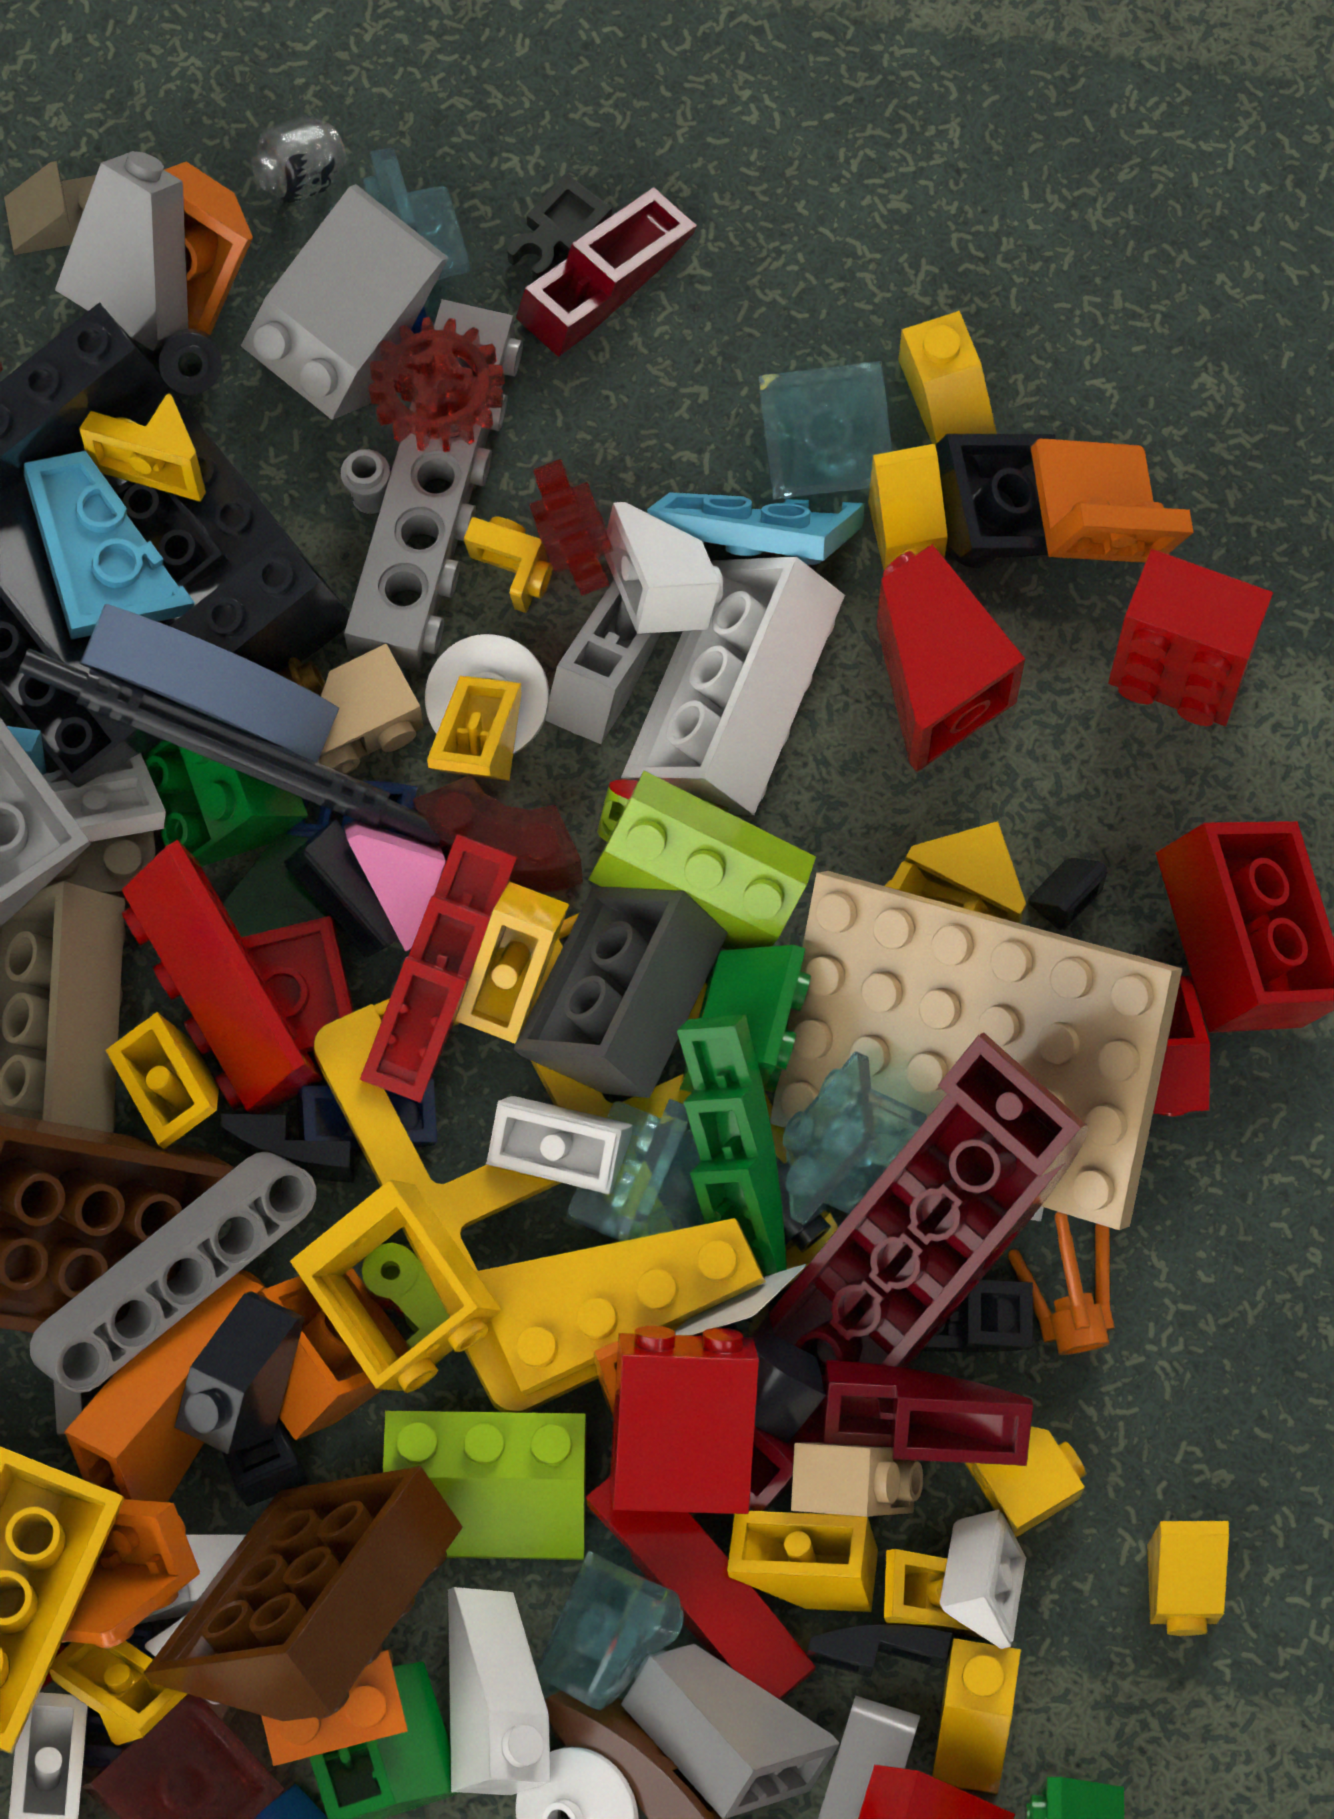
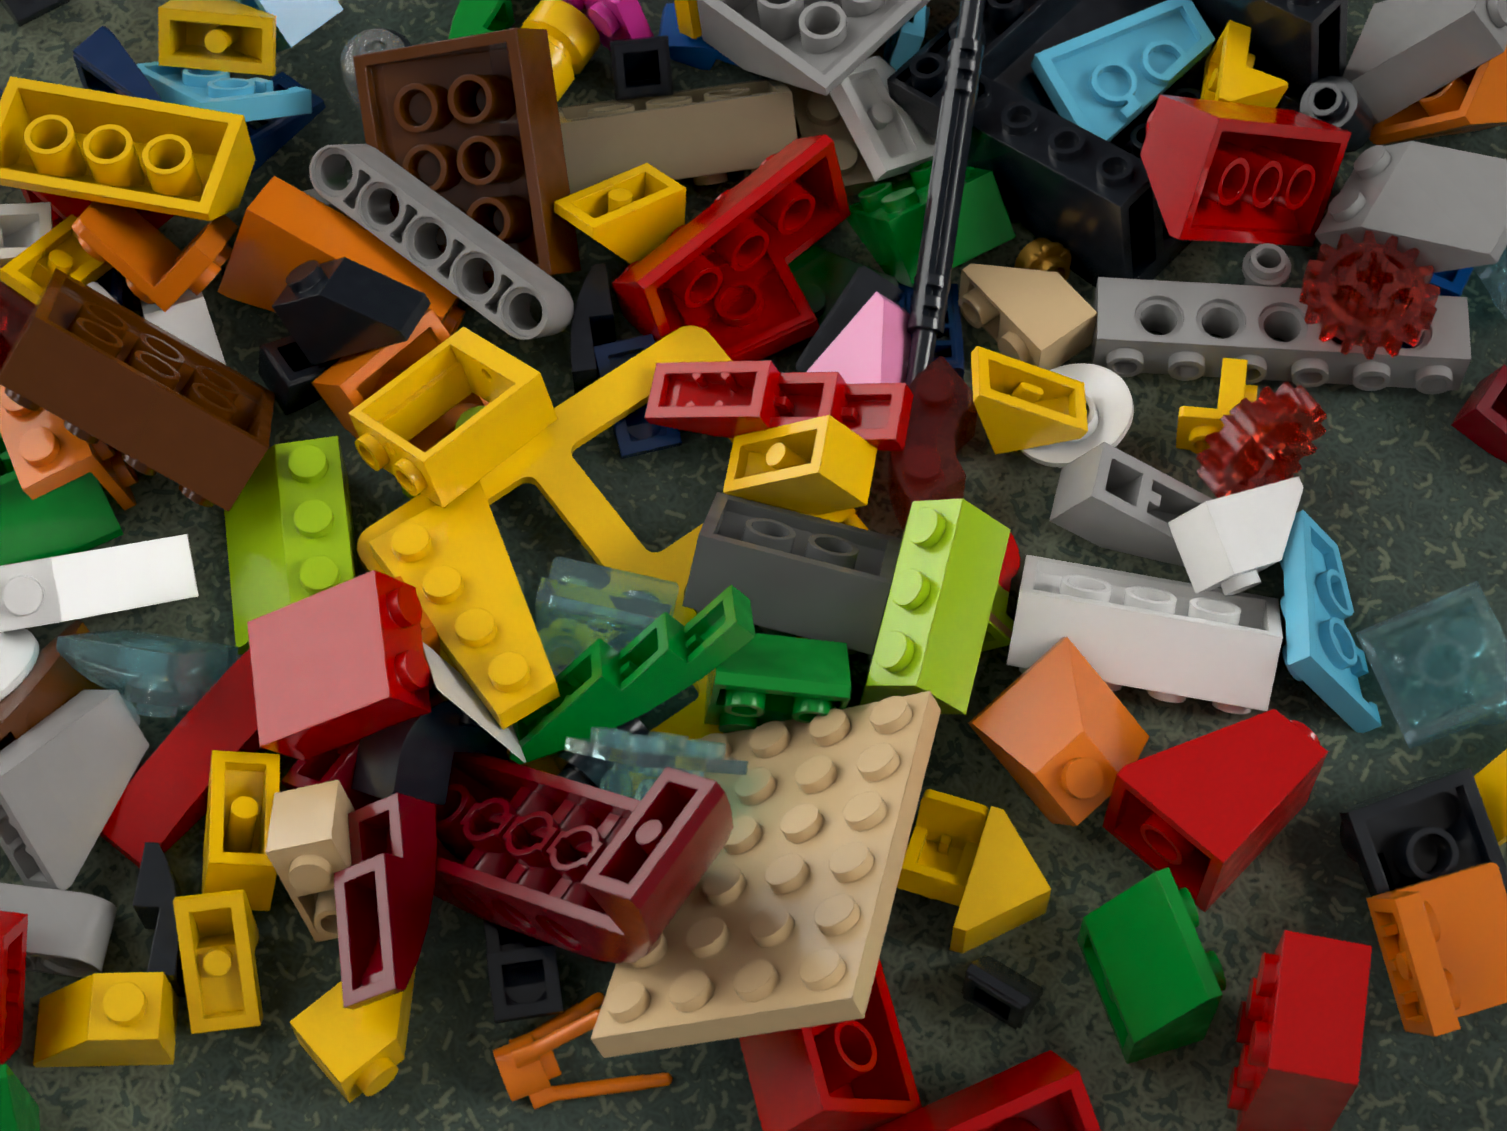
camera: 80 degrees right, 10 degrees down
(209, 681) = (999, 157): sand blue slope -> none
(272, 461) = (1240, 170): none -> red slope
(558, 1143) = (626, 535): white slope -> none
(844, 777) = (1061, 734): none -> orange slope
(907, 502) = (1379, 748): yellow slope -> none
(984, 1577) = (232, 999): white slope -> none
(1085, 752) = (1152, 967): none -> green slope

